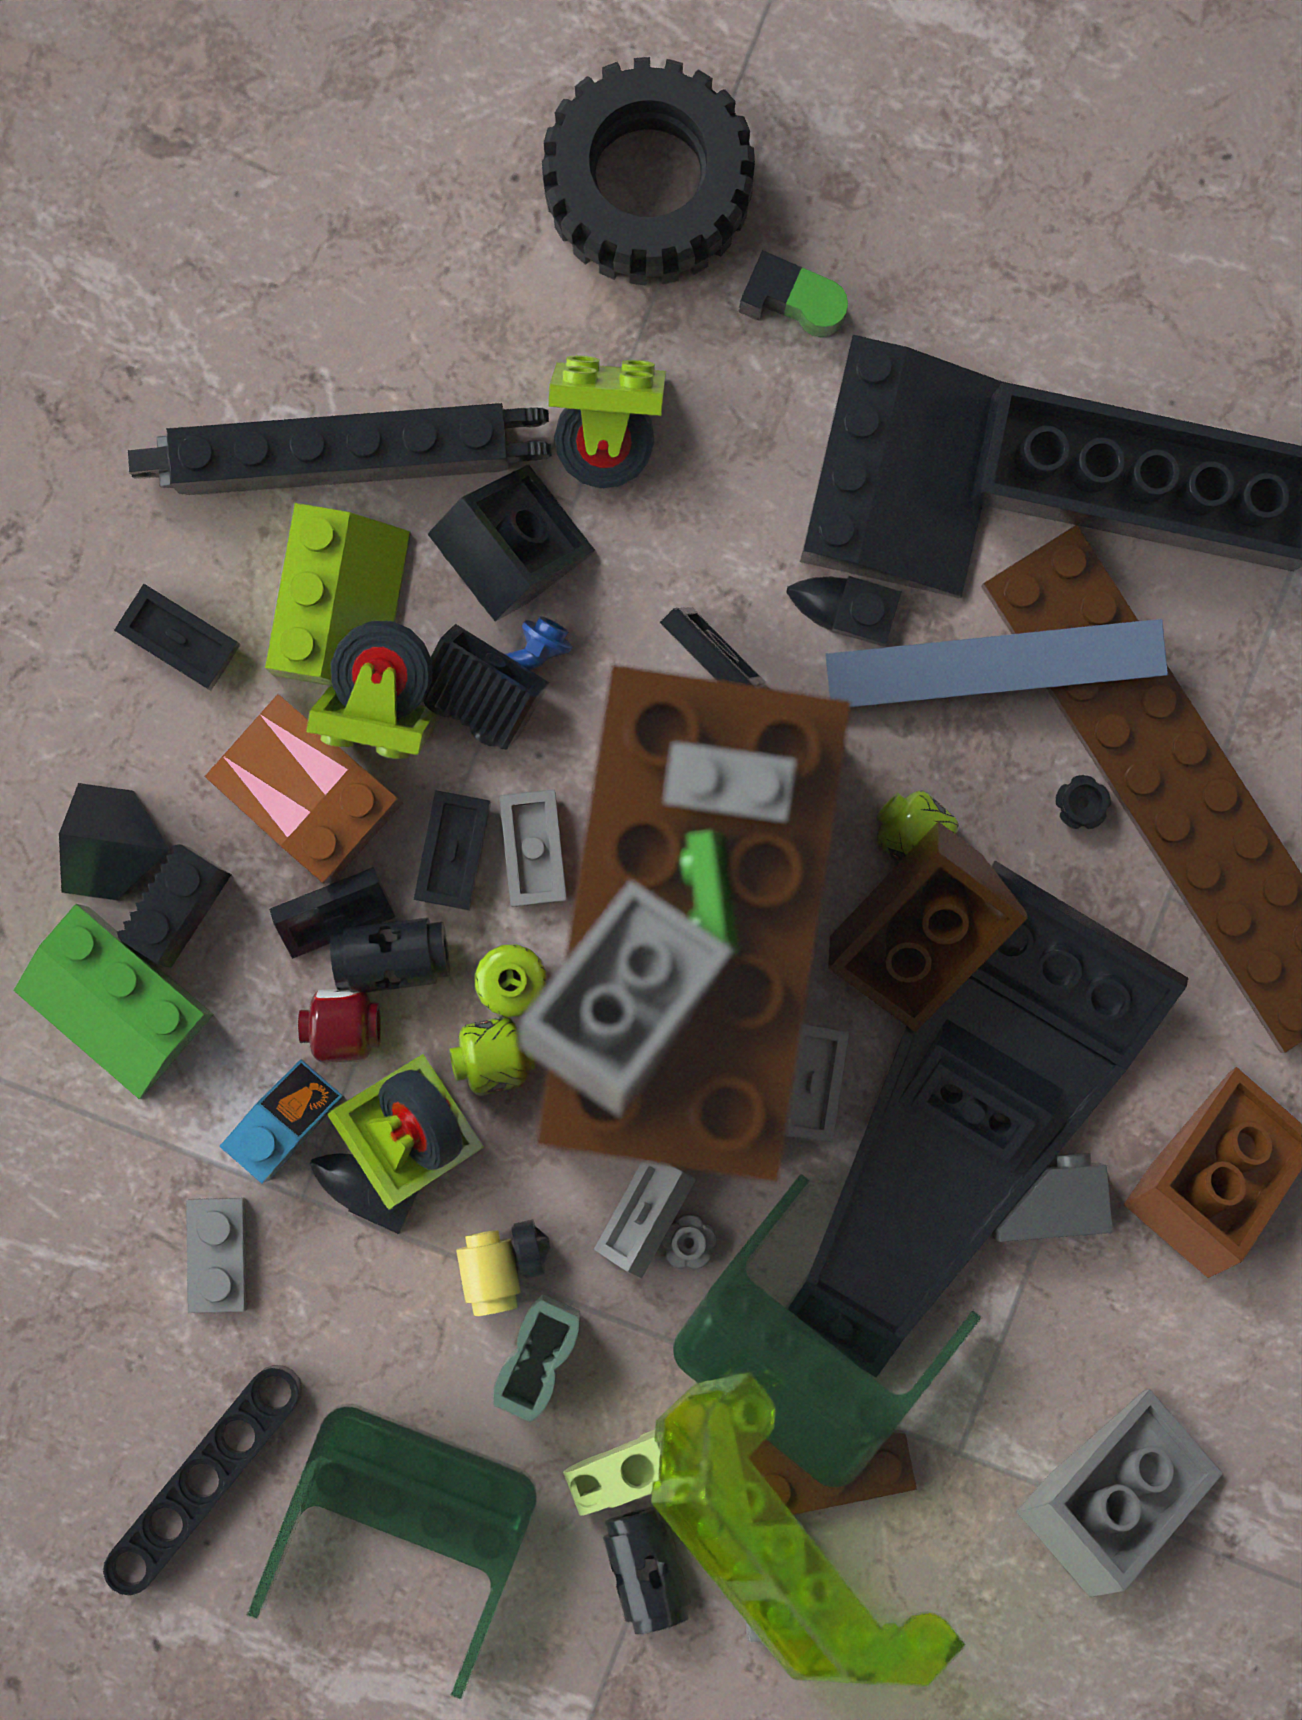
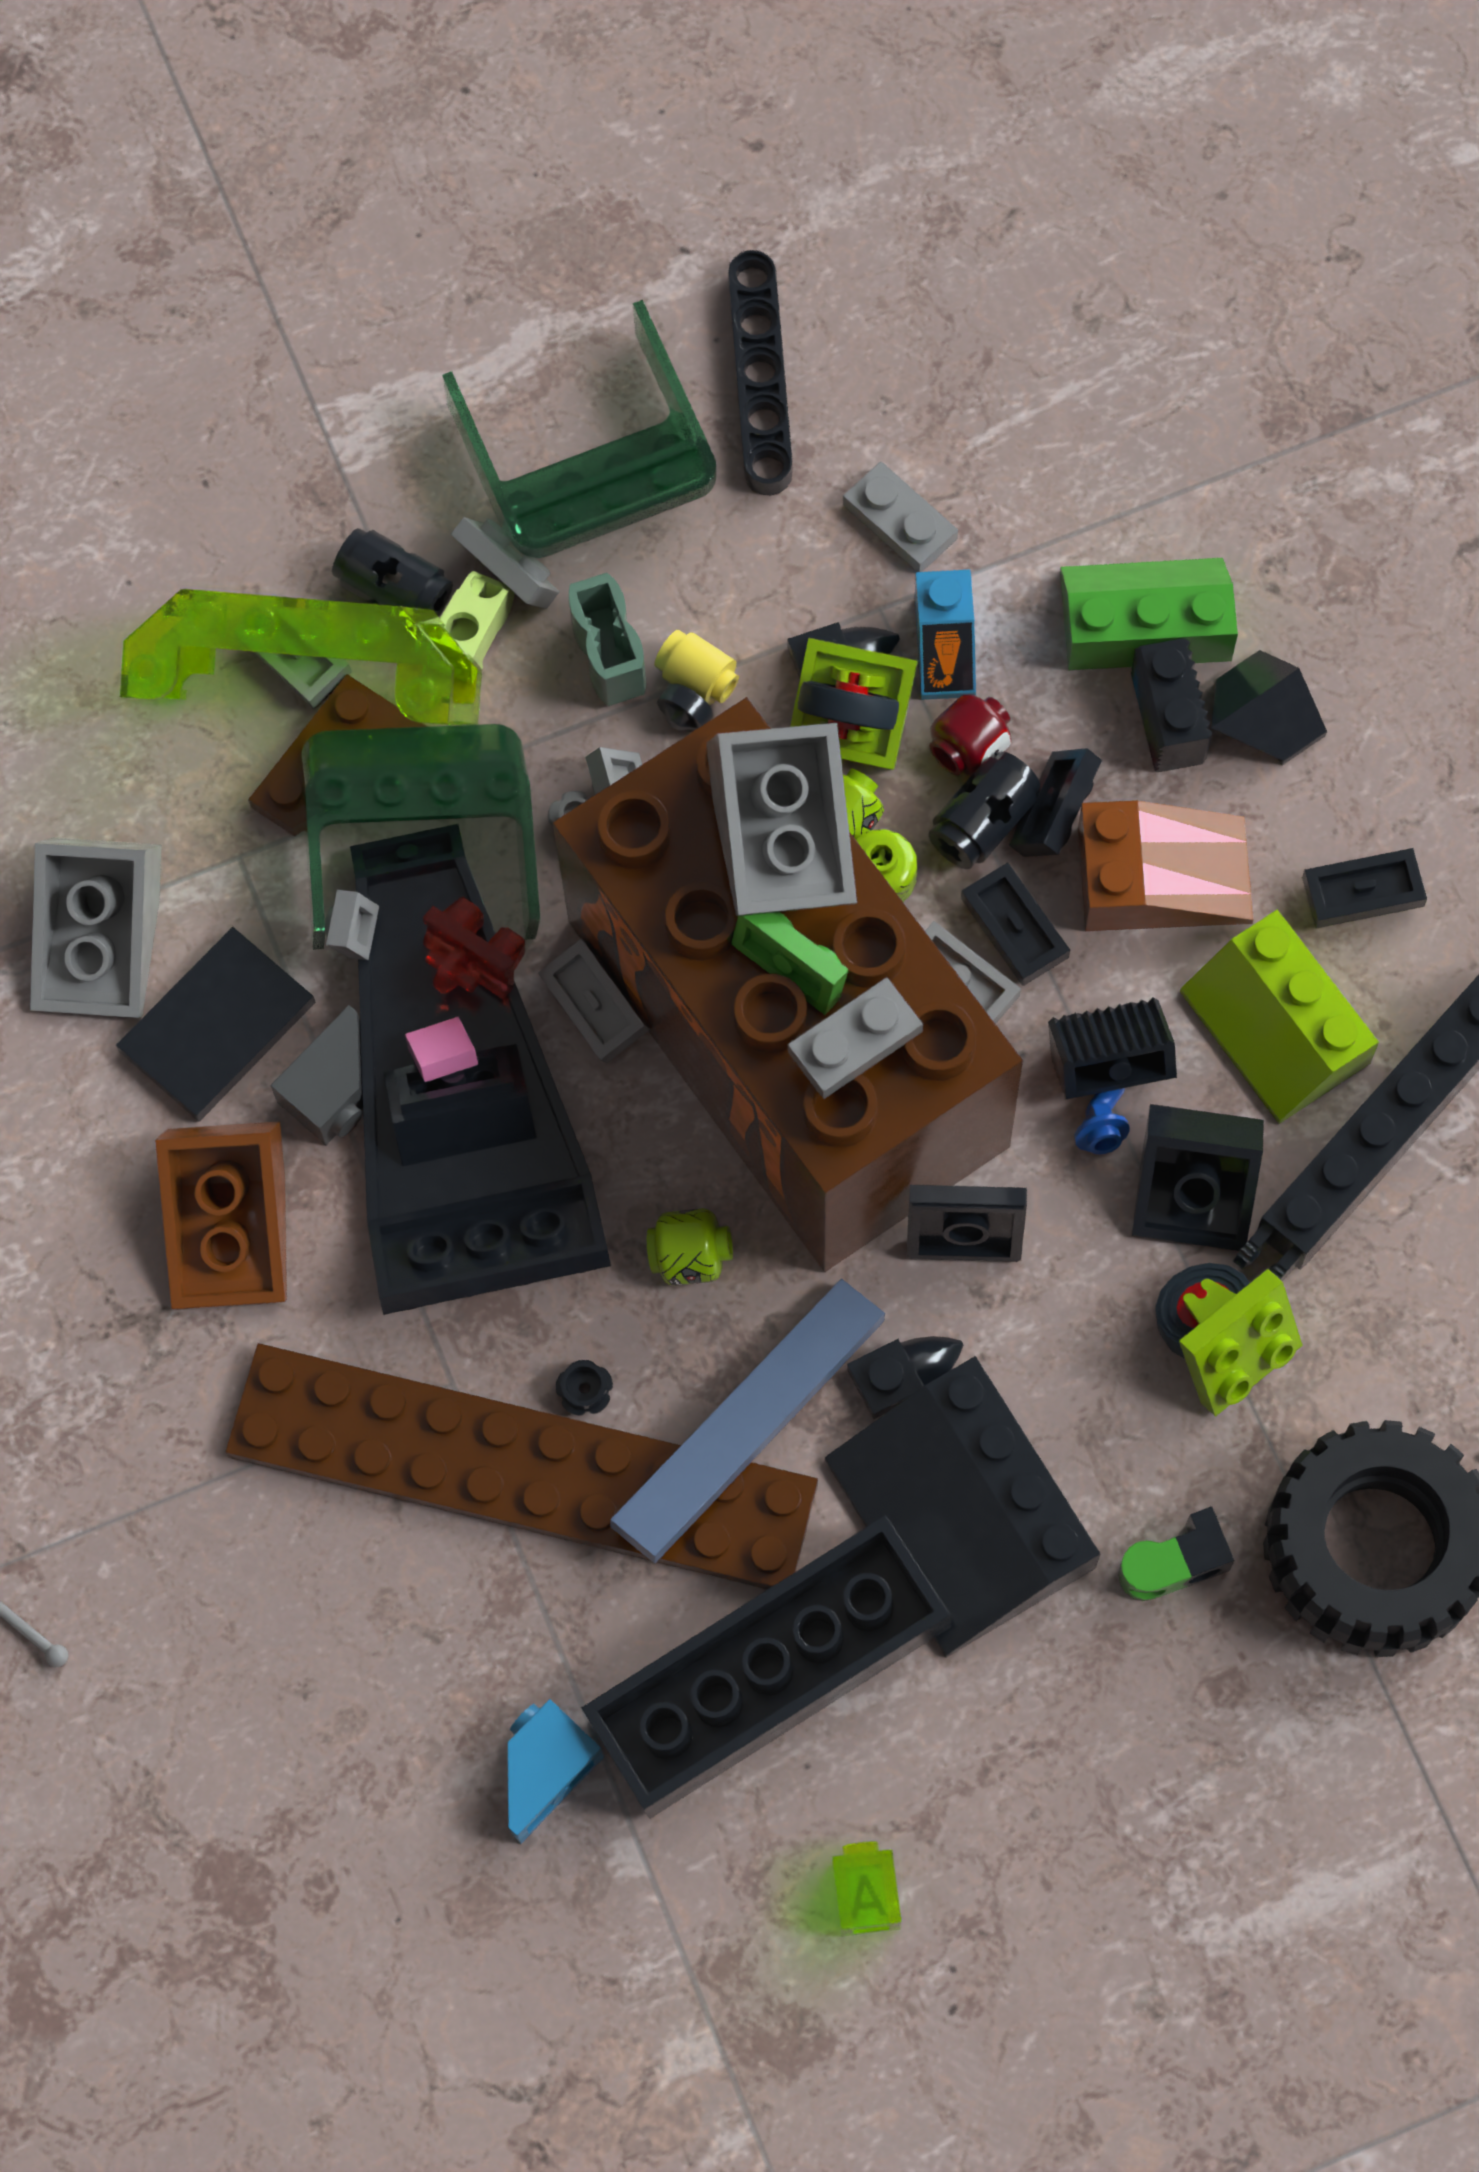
camera: 140 degrees right, 15 degrees down
(377, 692) = (1176, 961): plate -> none
(552, 1521) = (521, 574): none -> light grey plate
(877, 1223) = (465, 957): none -> clear red hips
(925, 928) = (616, 1167): reddish brown slope -> none
(946, 1298) = (351, 924): none -> light grey plate
(963, 1143) = (441, 1049): none -> bright pink tile
(1097, 1331) = (215, 1024): none -> black tile
(1218, 276) = (866, 1889): none -> clear neon green brick

